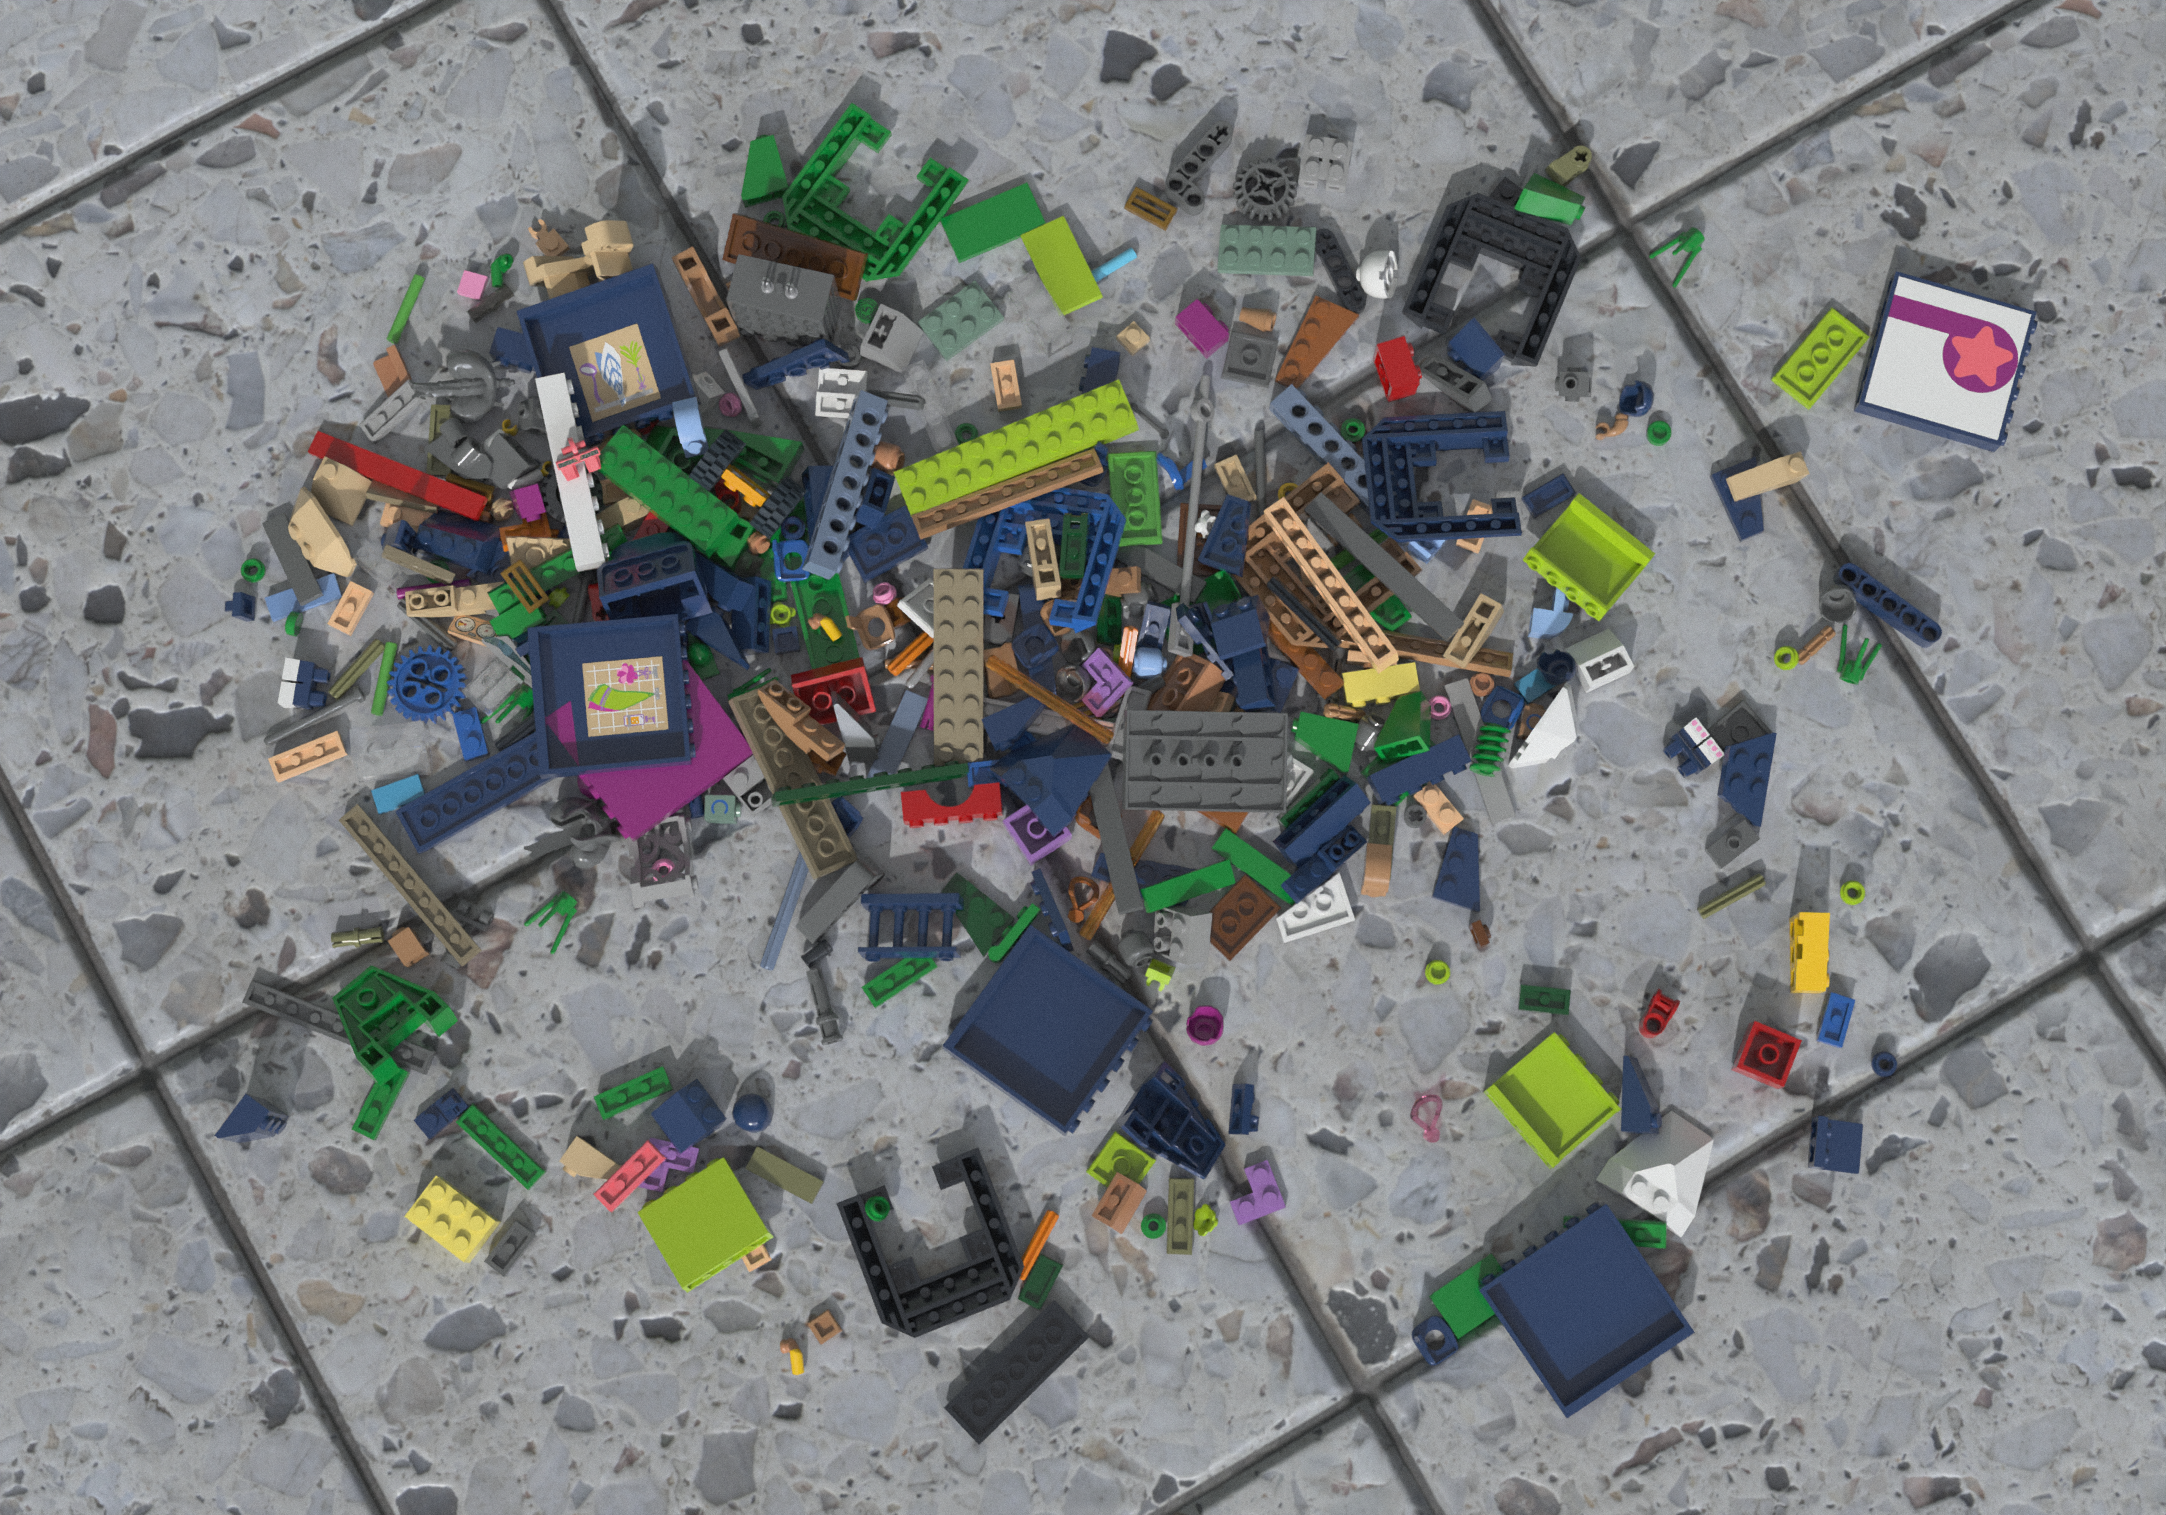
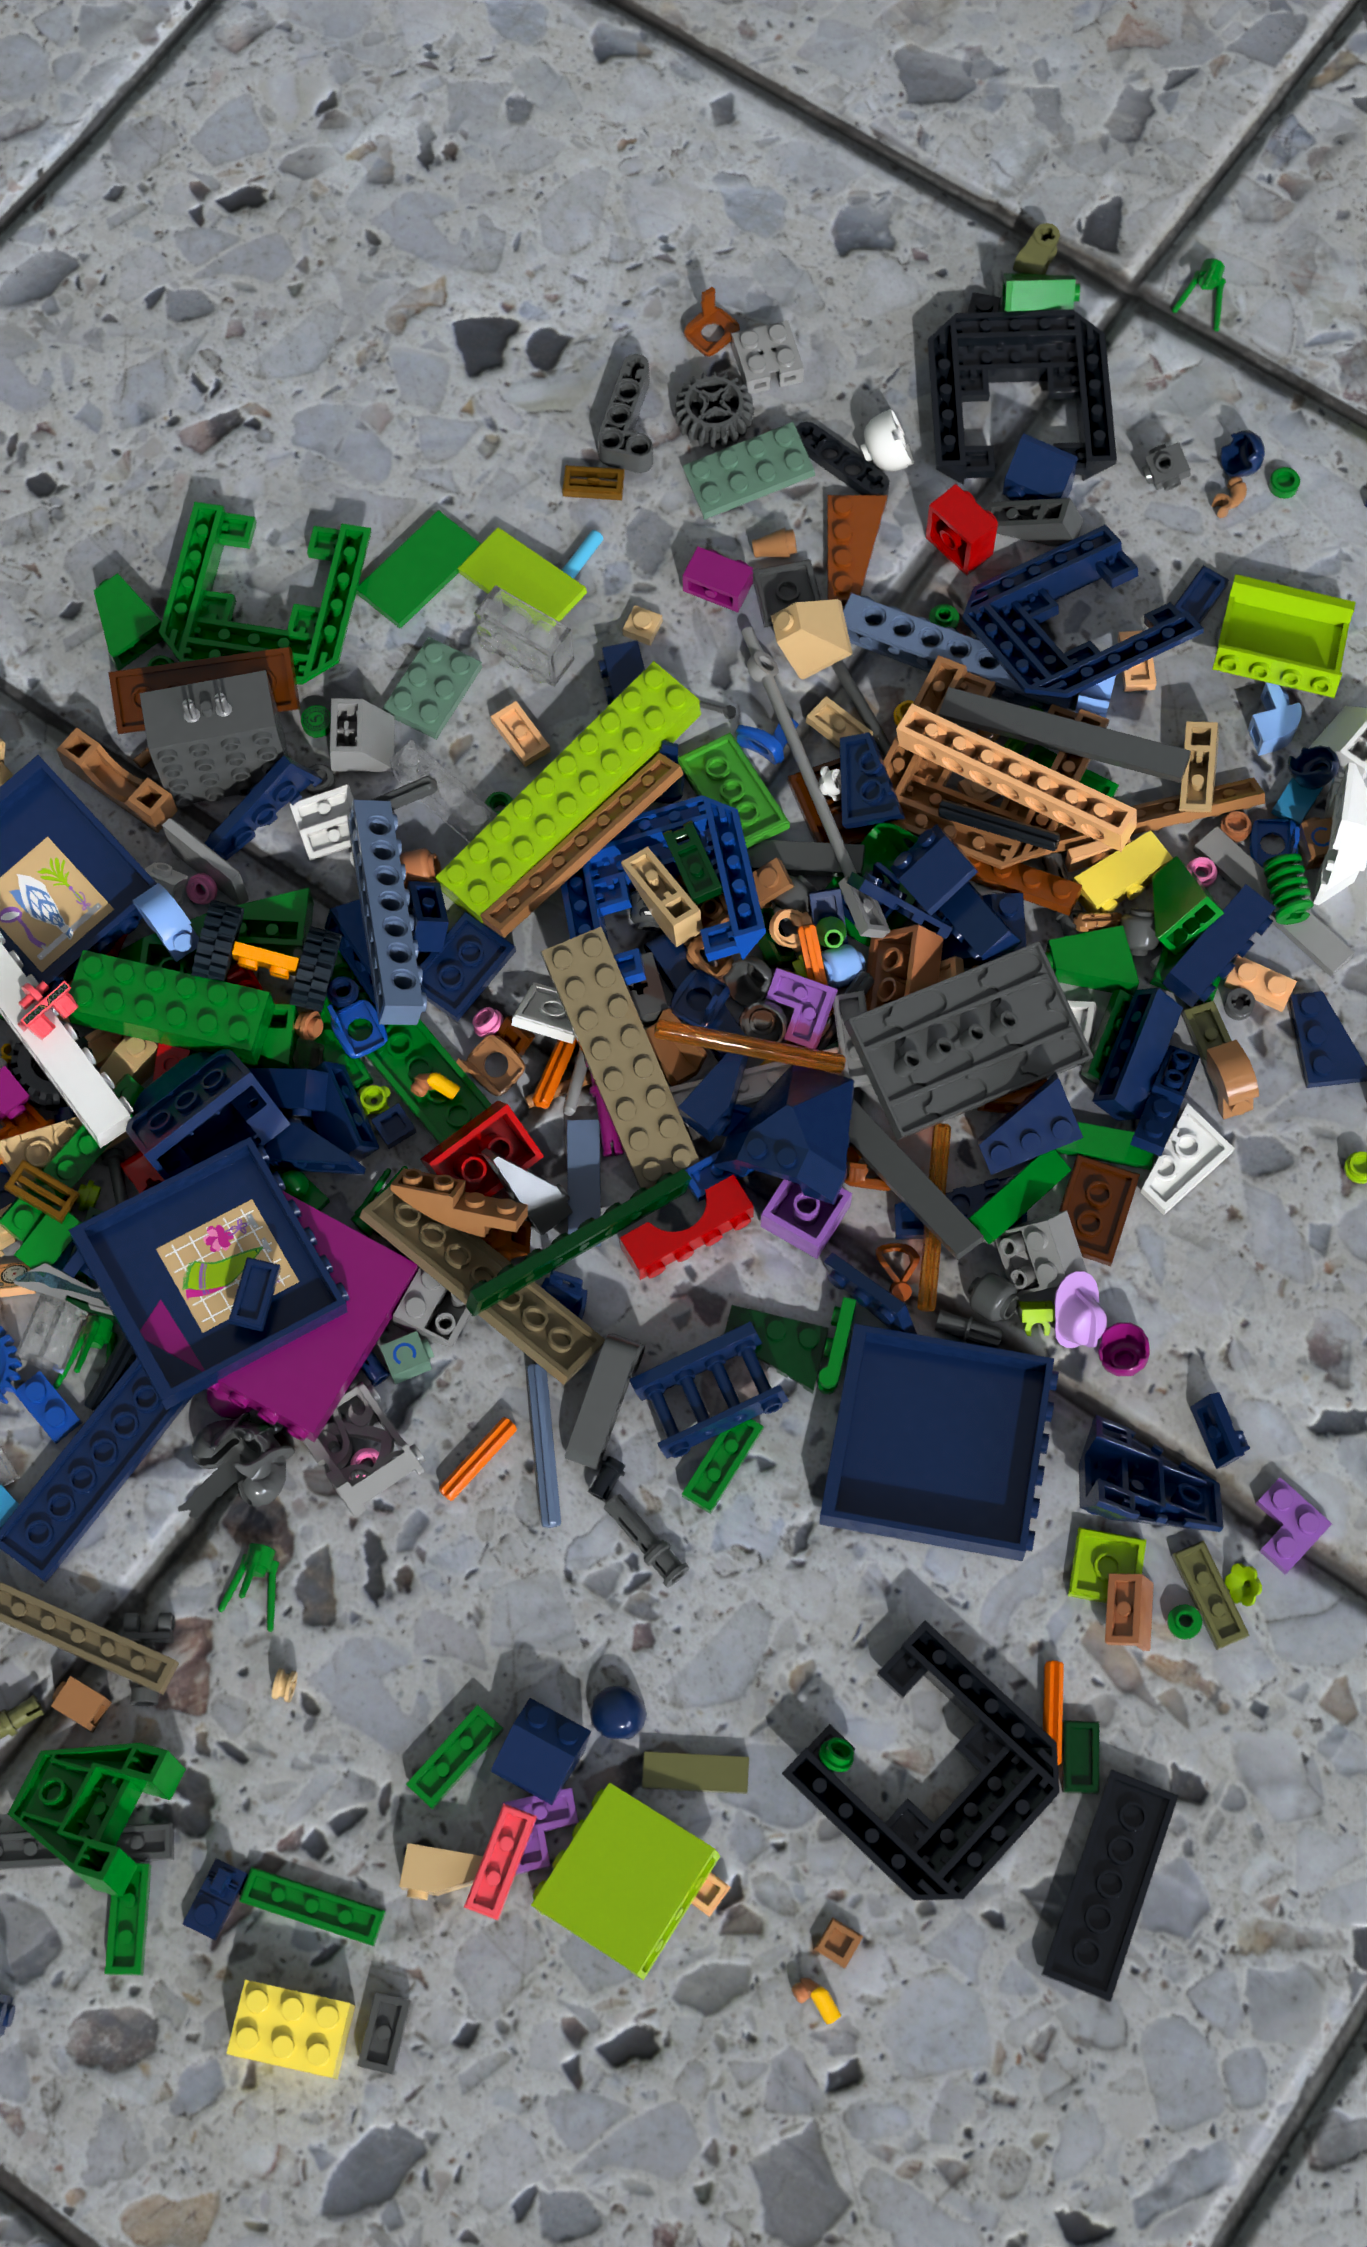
camera: 25 degrees left, 10 degrees down
(544, 995) = (284, 1685): none -> tan bush
(632, 728) = (254, 1294): none -> dark blue tile
(738, 900) = (477, 1458): none -> orange axle
(1133, 616) = (797, 919): none -> light nougat piece
(1149, 638) = (830, 925): none -> bright green cone
(1186, 985) = (1078, 1312): none -> lavender piece
(1218, 844) = (1031, 1128): none -> dark blue wedge
(1247, 404) = (812, 635): none -> tan slope
(1300, 109) = (710, 315): none -> dark orange piece

